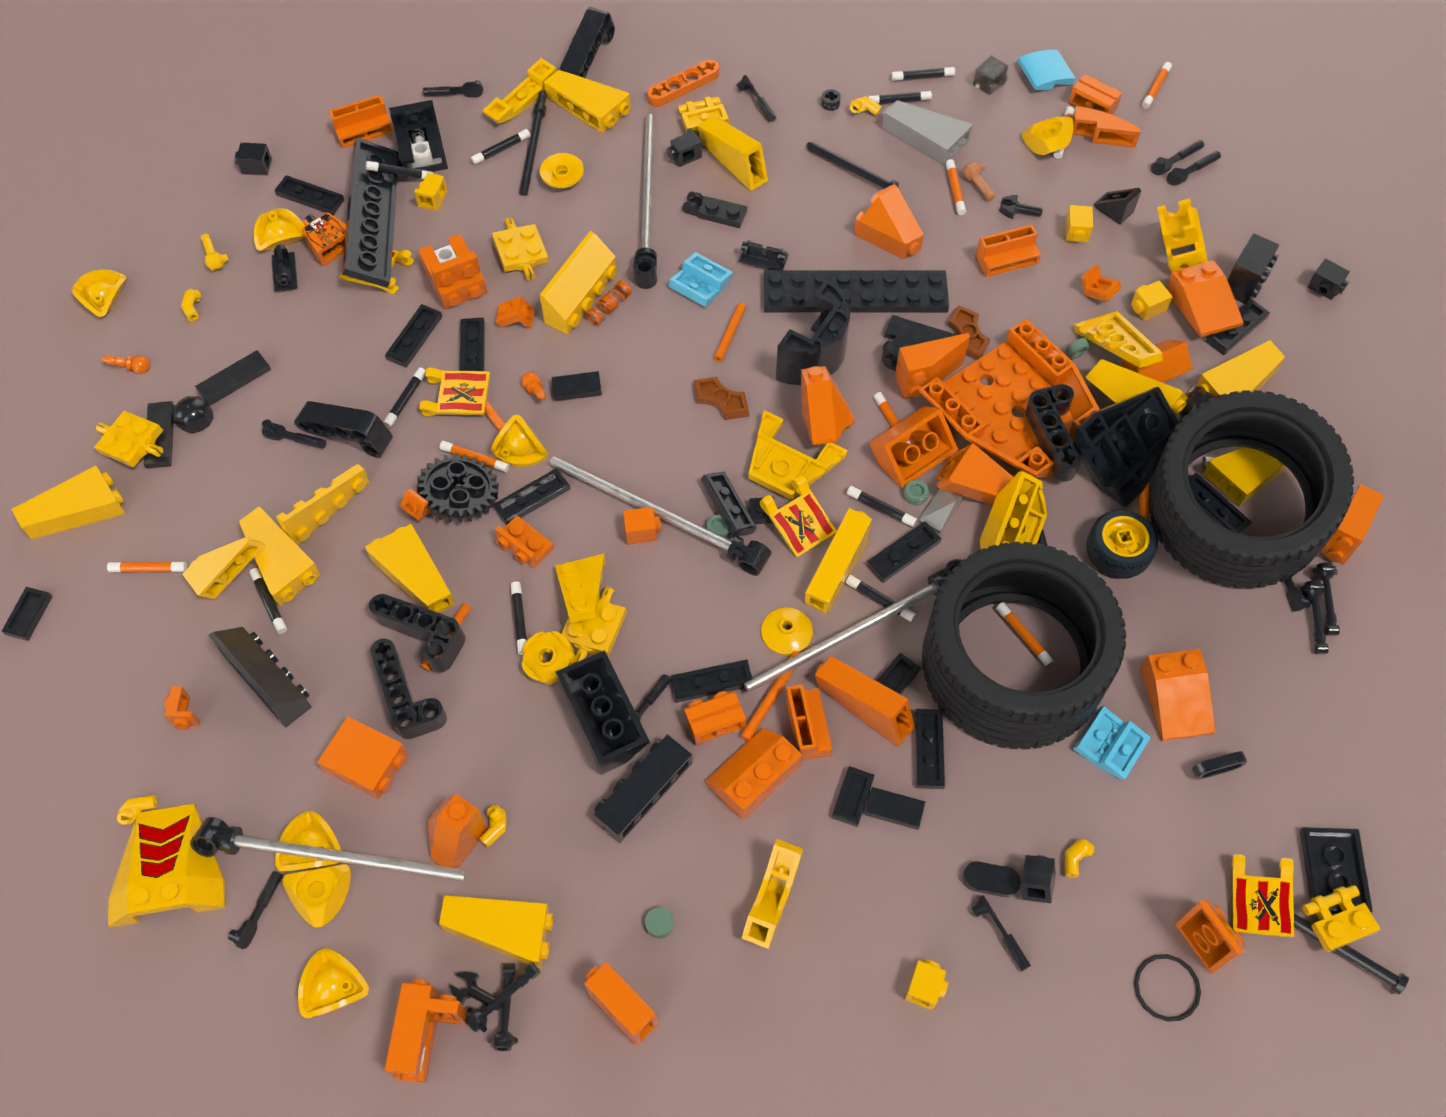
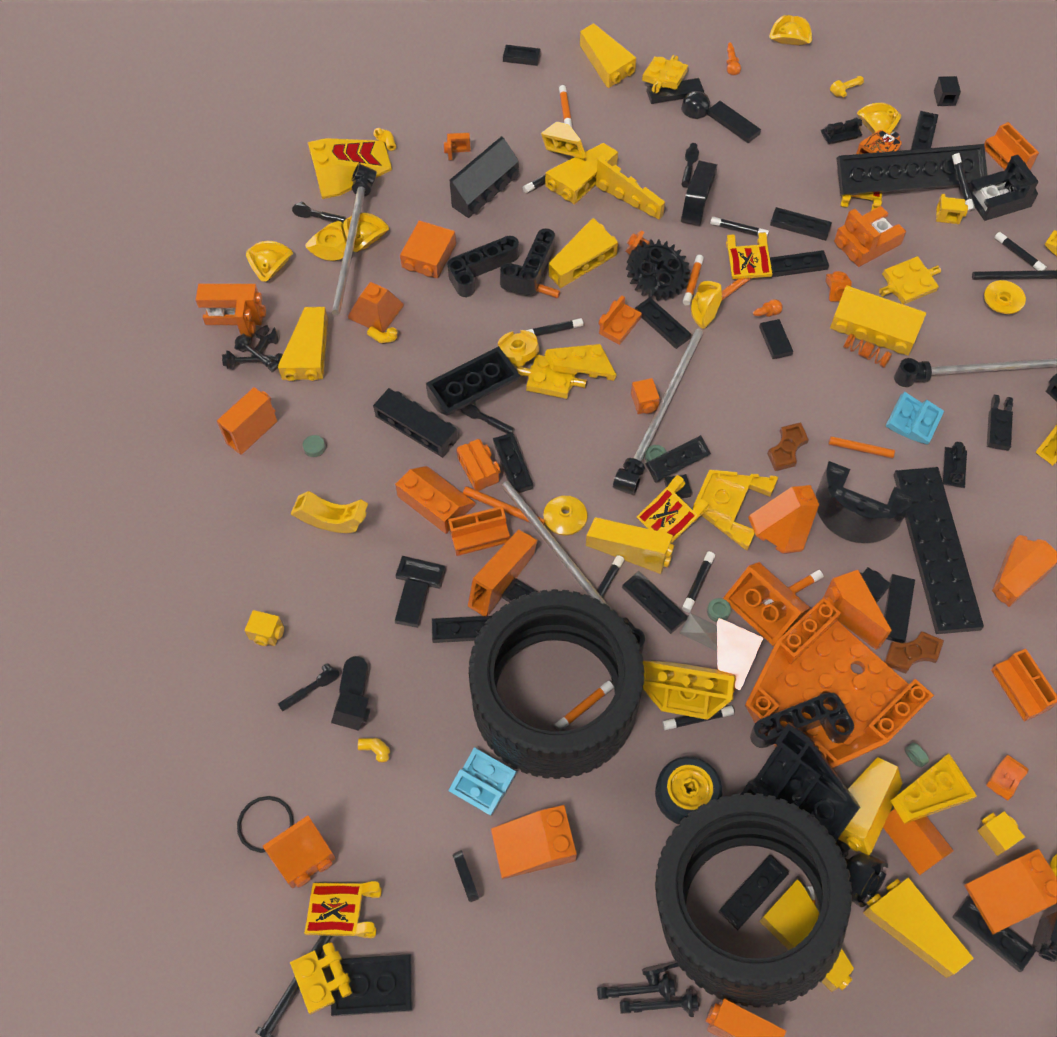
camera: 85 degrees right, 0 degrees up
(187, 304) = (789, 84): yellow arm -> none

